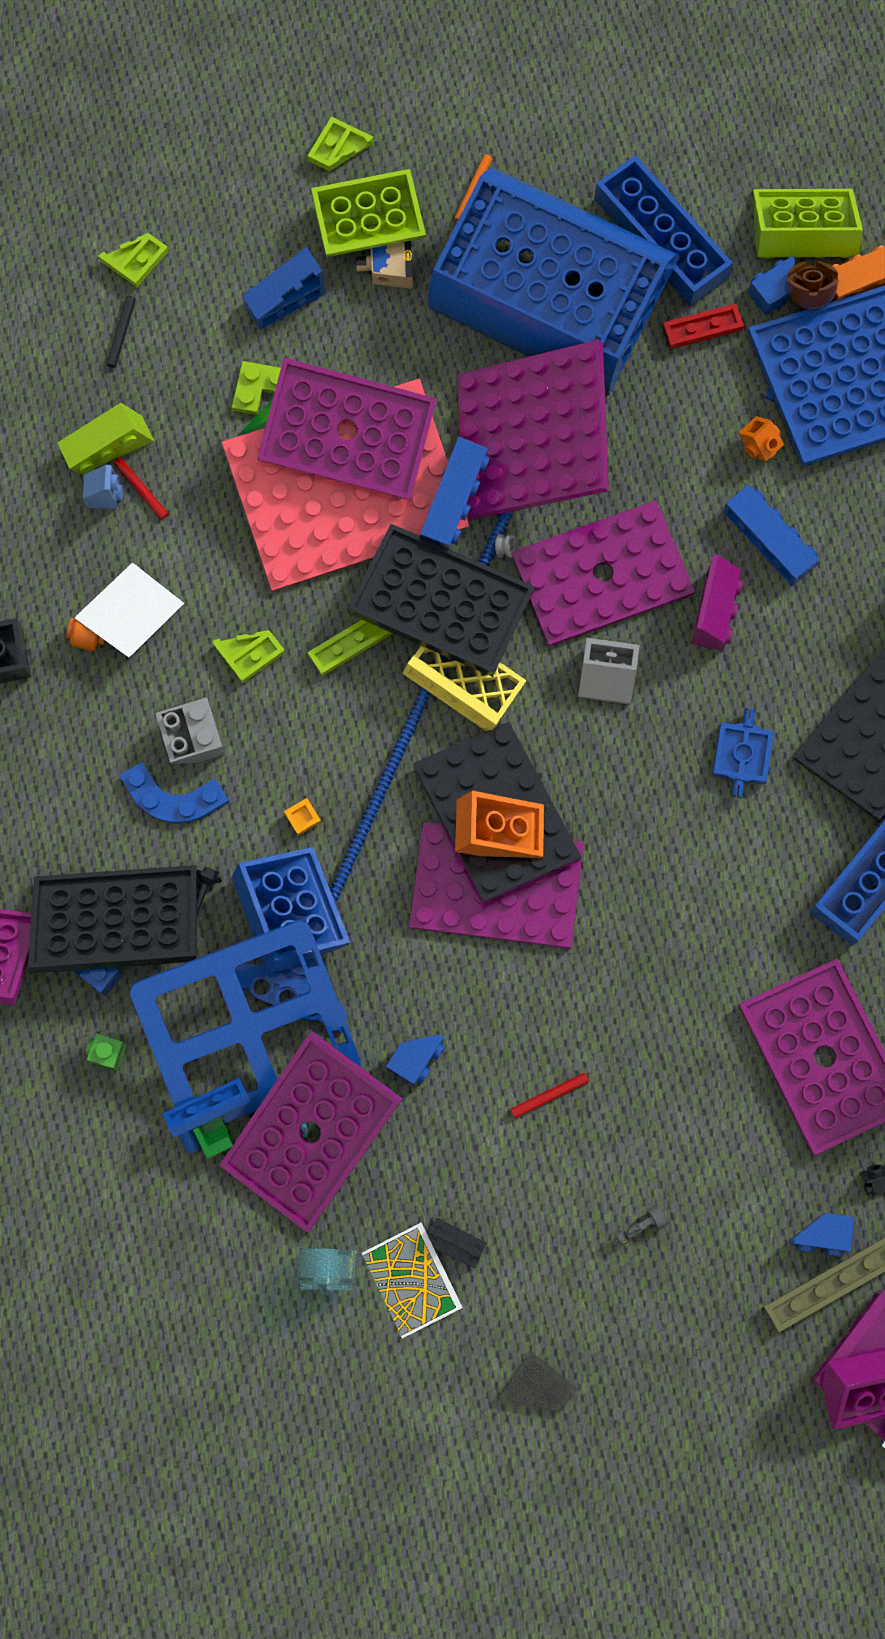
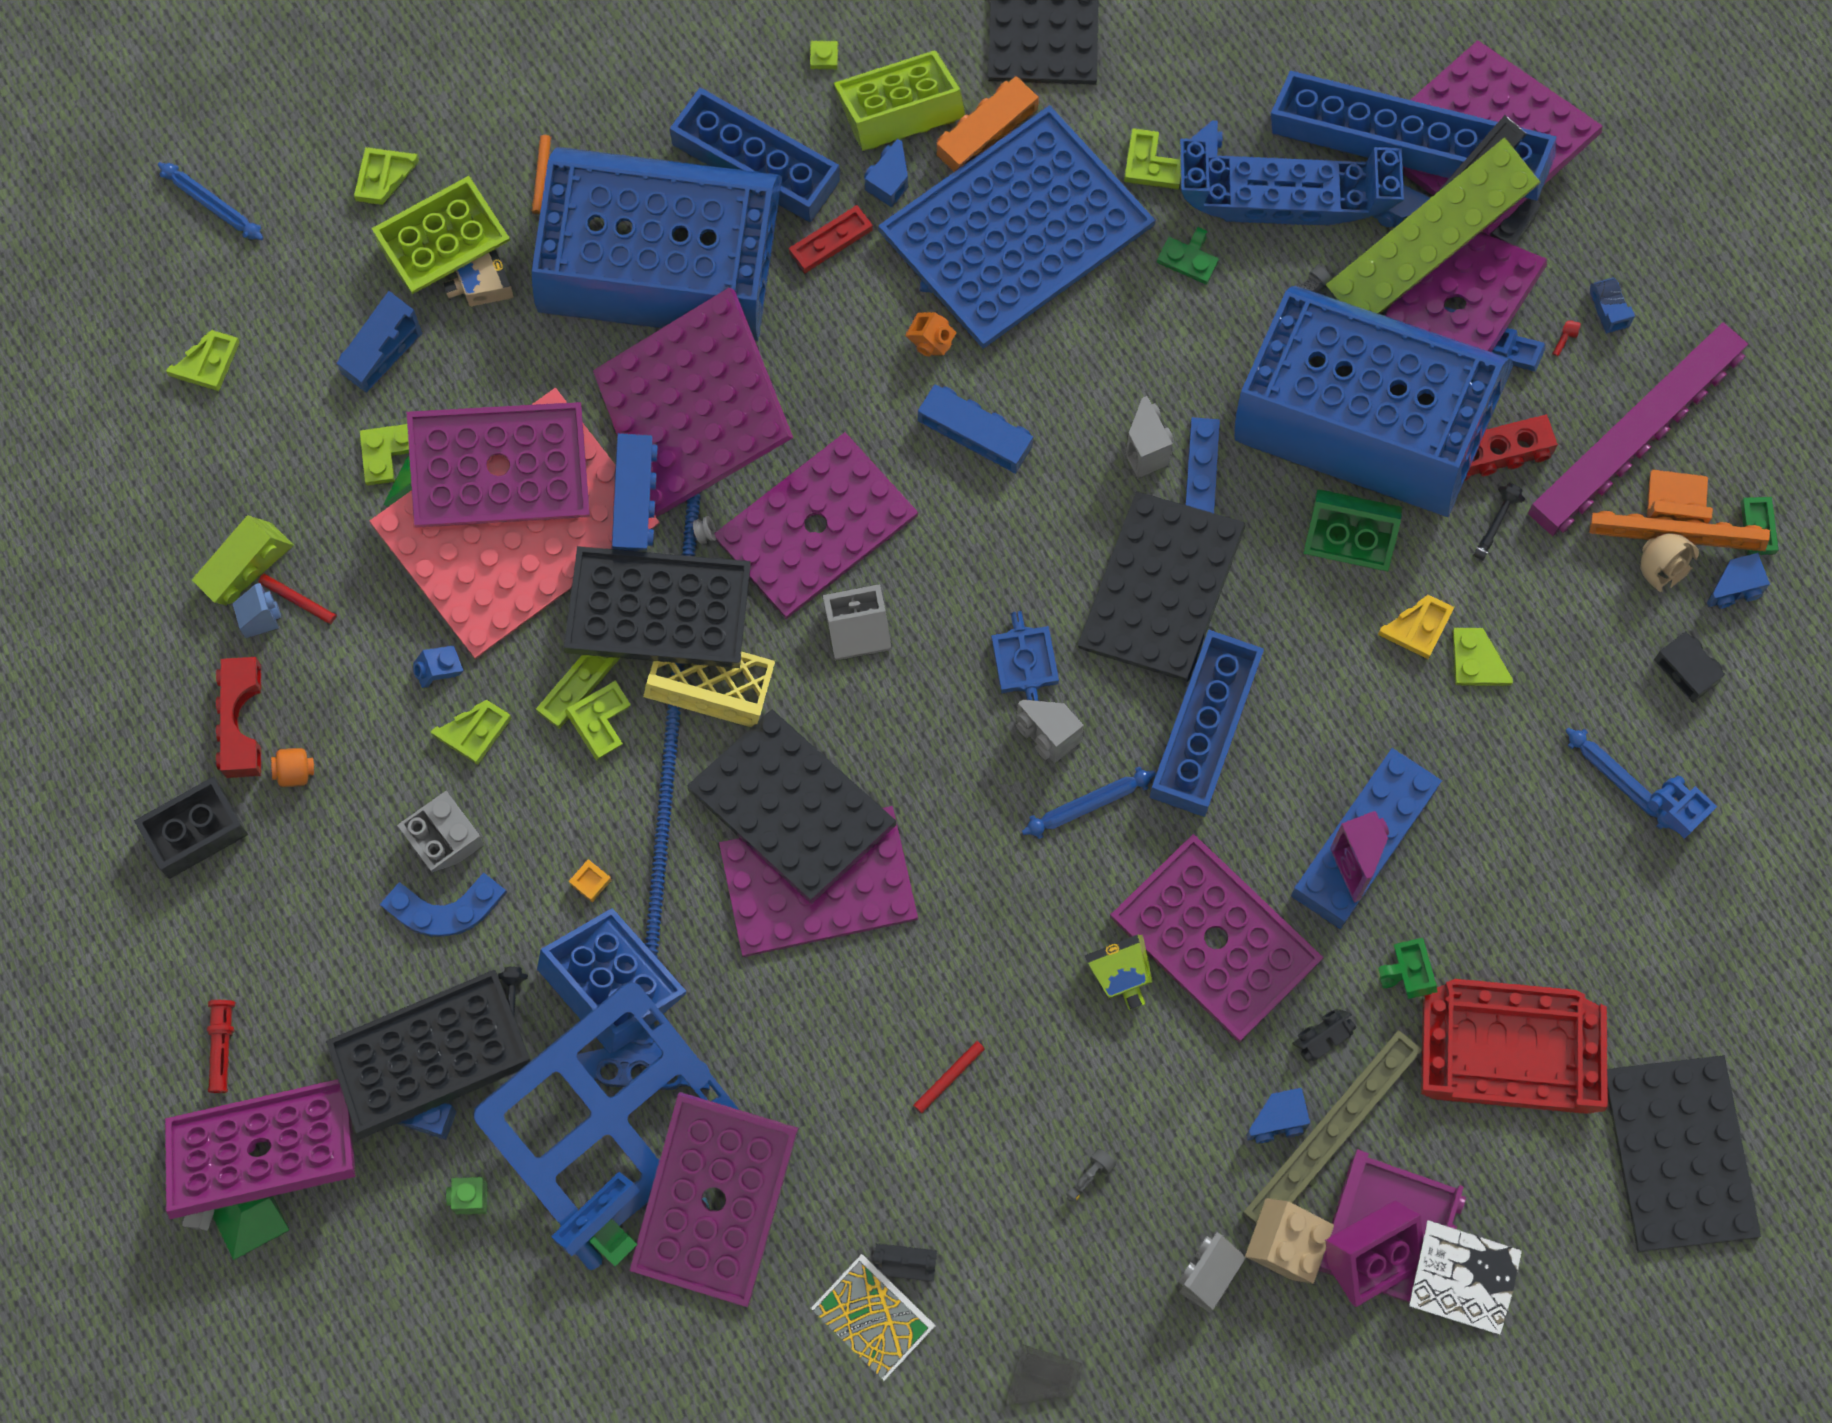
camera: 20 degrees left, 5 degrees down
(67, 544) = (239, 682): none -> red arch
(121, 331) = (217, 442): black bar -> none
(129, 610) = (330, 728): white sticker -> none
(186, 122) = (210, 201): none -> blue wheel
(237, 585) = (436, 665): none -> blue bracket
(327, 1267) = (779, 1333): clear light blue brick -> none
(351, 678) = (592, 715): none -> lime plate
(414, 1056) = (794, 1087): blue slope -> none
(498, 826) = (799, 817): orange slope -> none
(717, 604) = (945, 517): magenta slope -> none
(717, 1351) = (1212, 1274): none -> light grey slope
(733, 1057) = (1122, 969): none -> torso
(745, 821) = (1050, 726): none -> light grey slope
(753, 162) = (824, 55): none -> lime plate
(755, 898) = (1088, 802): none -> blue wheel
(796, 1348) = (1289, 1240): none -> tan brick
(812, 285) = (928, 161): reddish brown cylinder -> none

